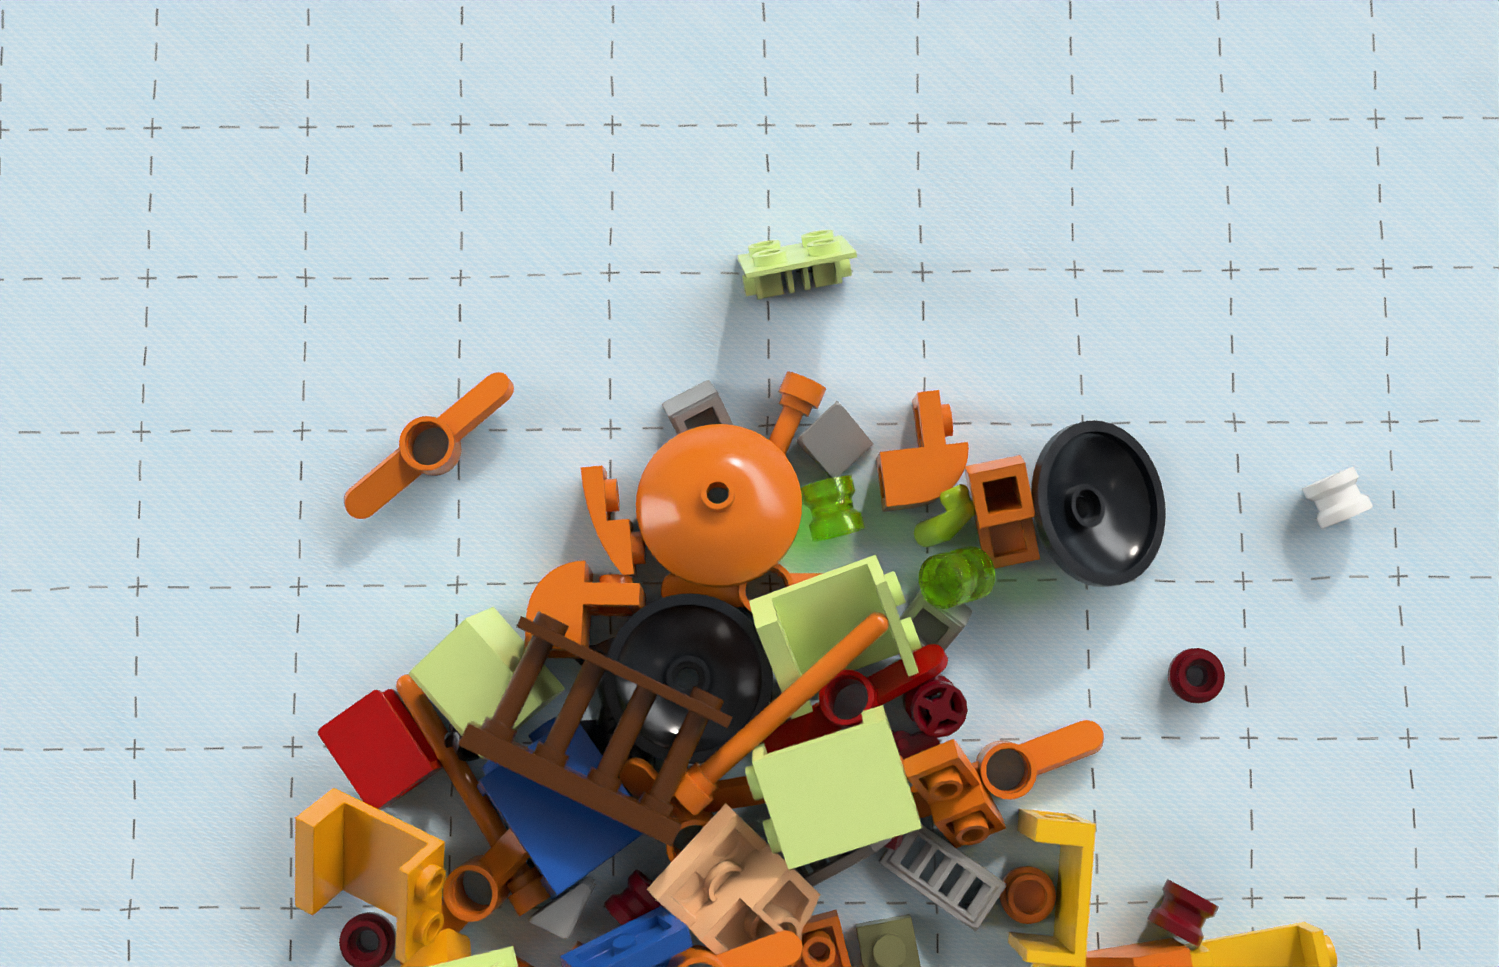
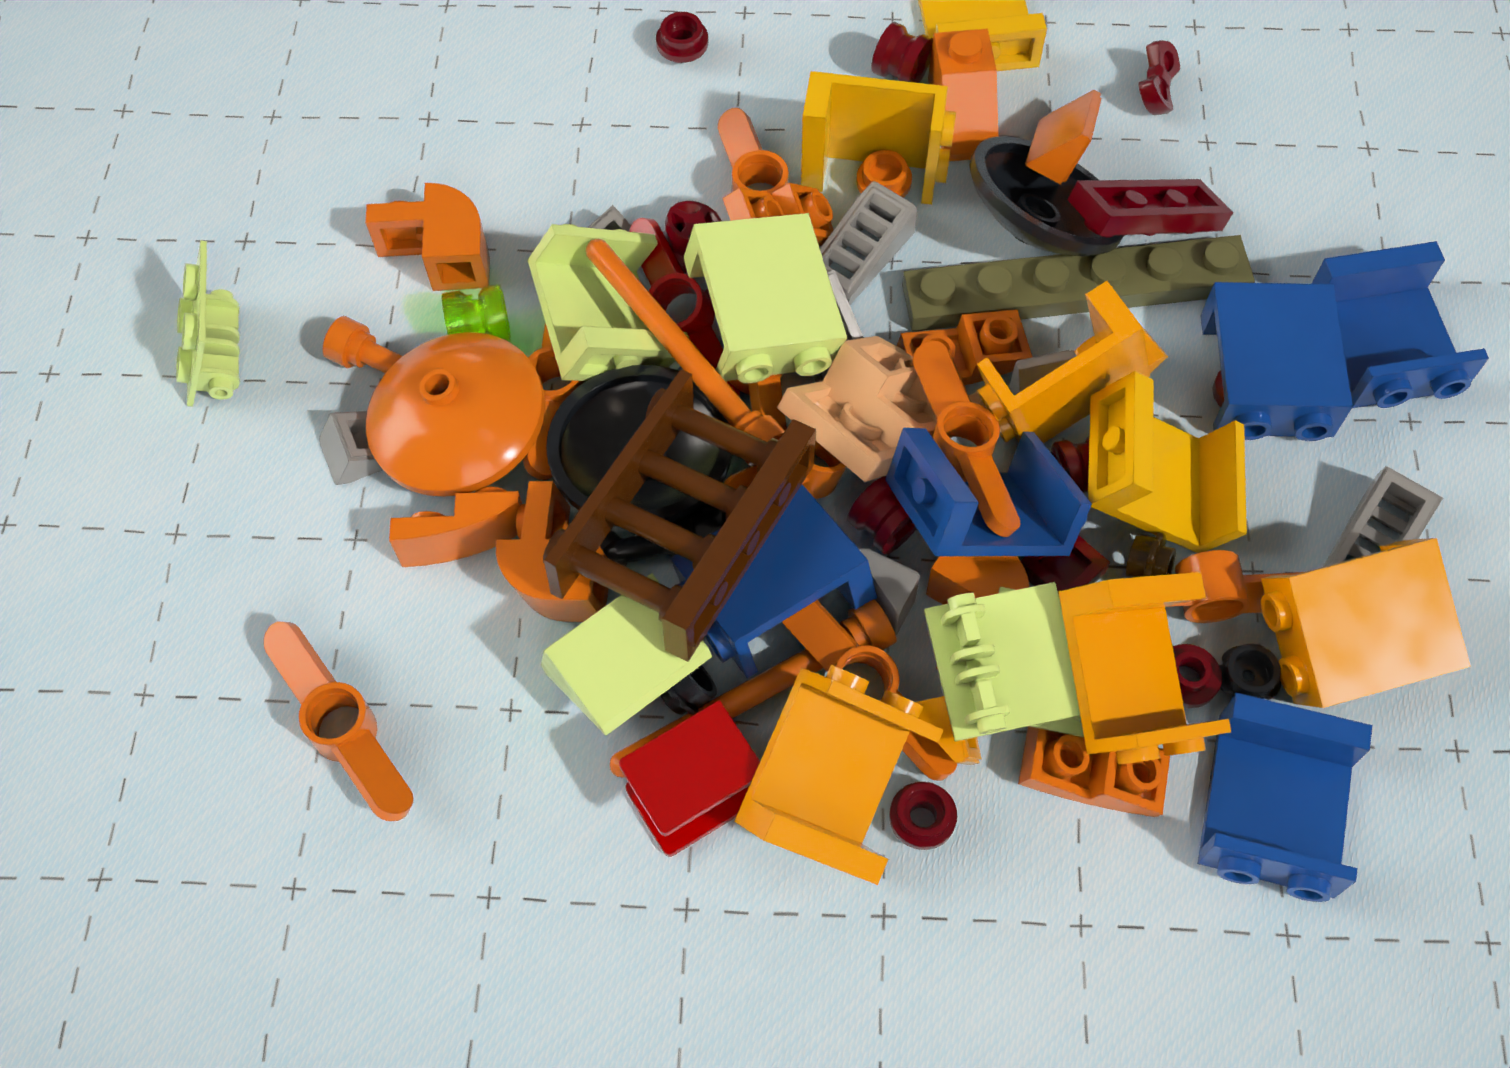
camera: 85 degrees left, 20 degrees down
(834, 441) = (404, 318): light grey slope -> none
(946, 525) = (508, 212): lime arm -> none
(956, 577) = (563, 210): clear neon green wheel -> none
(1003, 510) = (492, 167): orange brick -> none
(1098, 503) = (504, 91): black dish -> none

